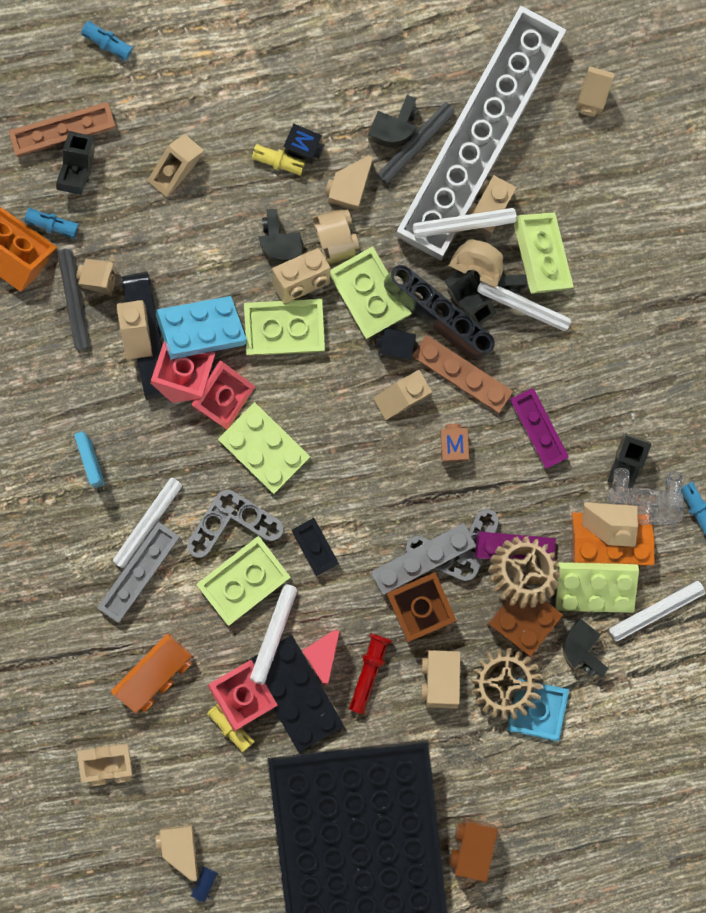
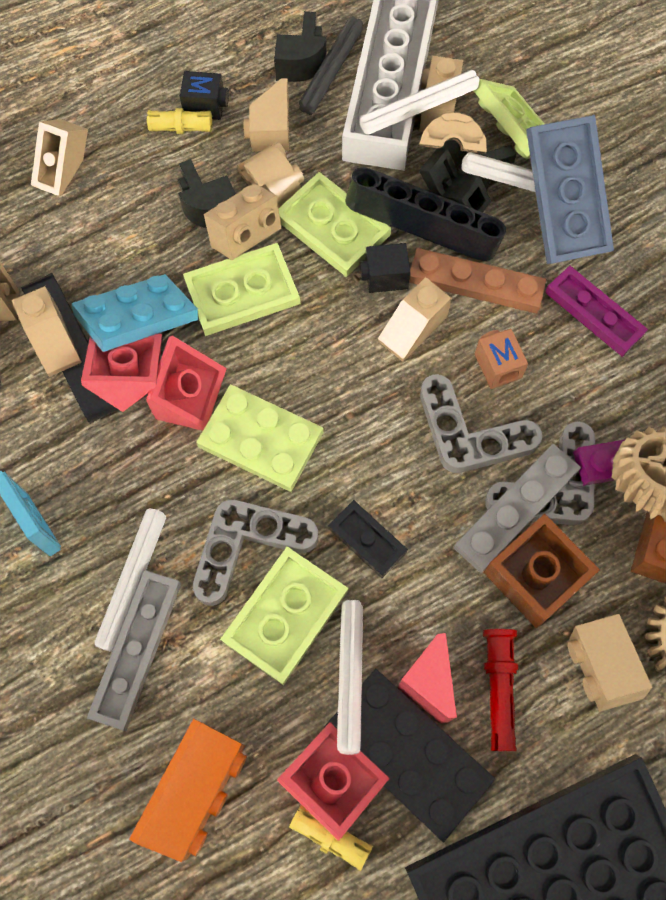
camera: 10 degrees left, 15 degrees down
(411, 501) = (471, 443): none -> light grey beam
(553, 331) = (570, 189): none -> sand blue plate

